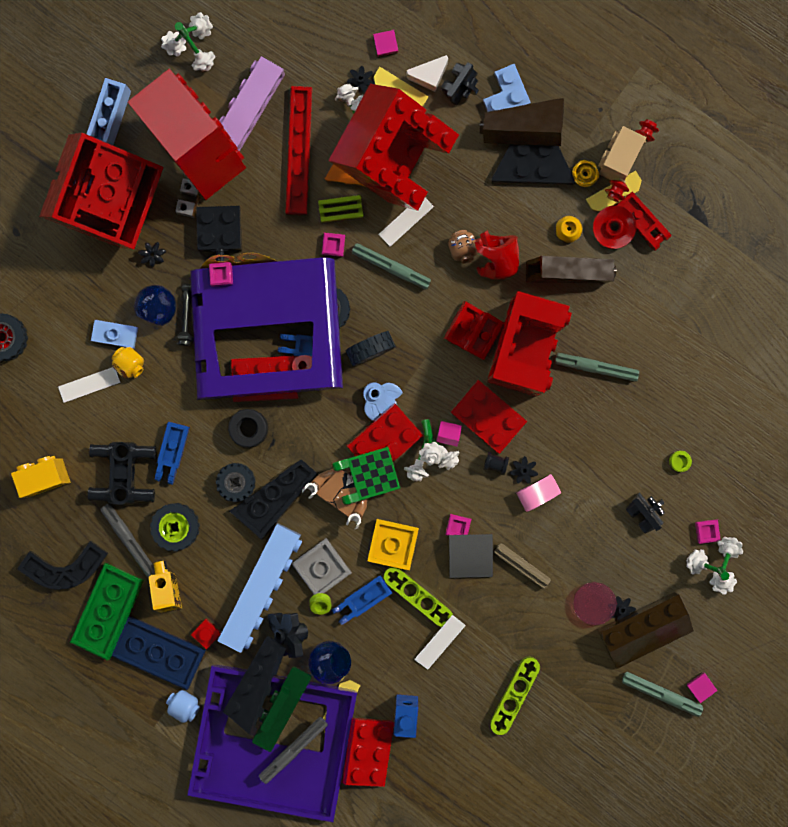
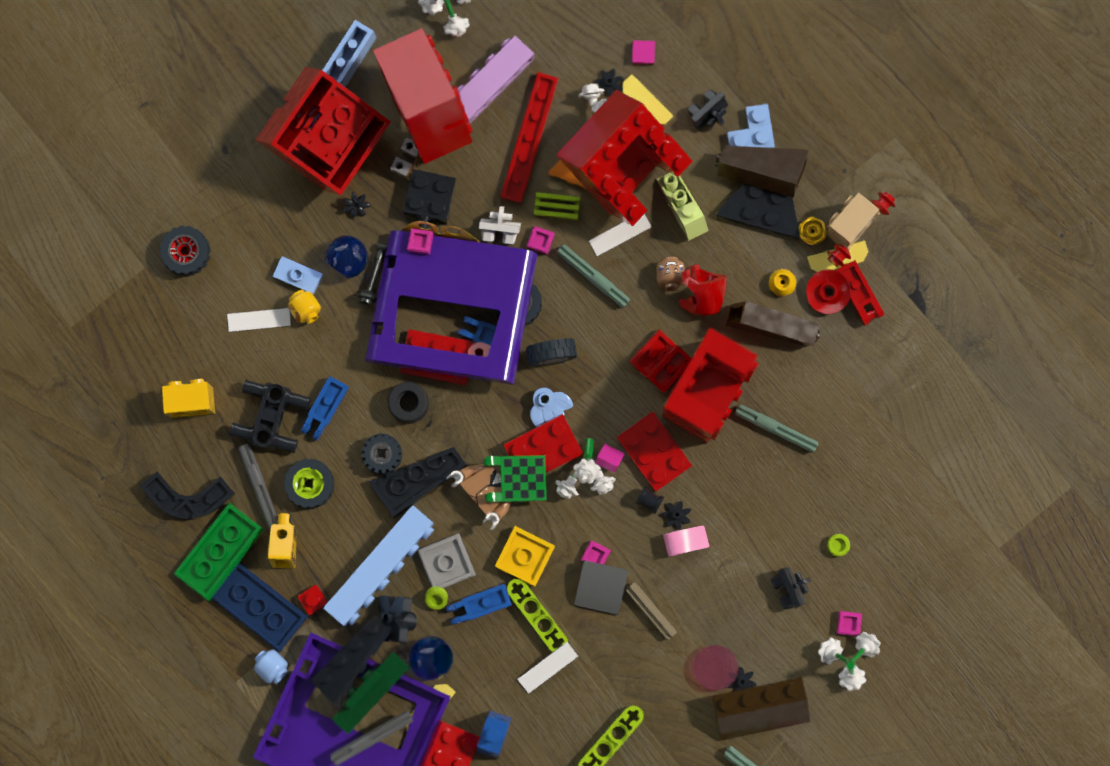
camera: 20 degrees right, 5 degrees down
(301, 241) = (489, 227): none -> white hips
(428, 74) = (679, 93): white slope -> none
(459, 179) = (683, 205): none -> yellowish green slope

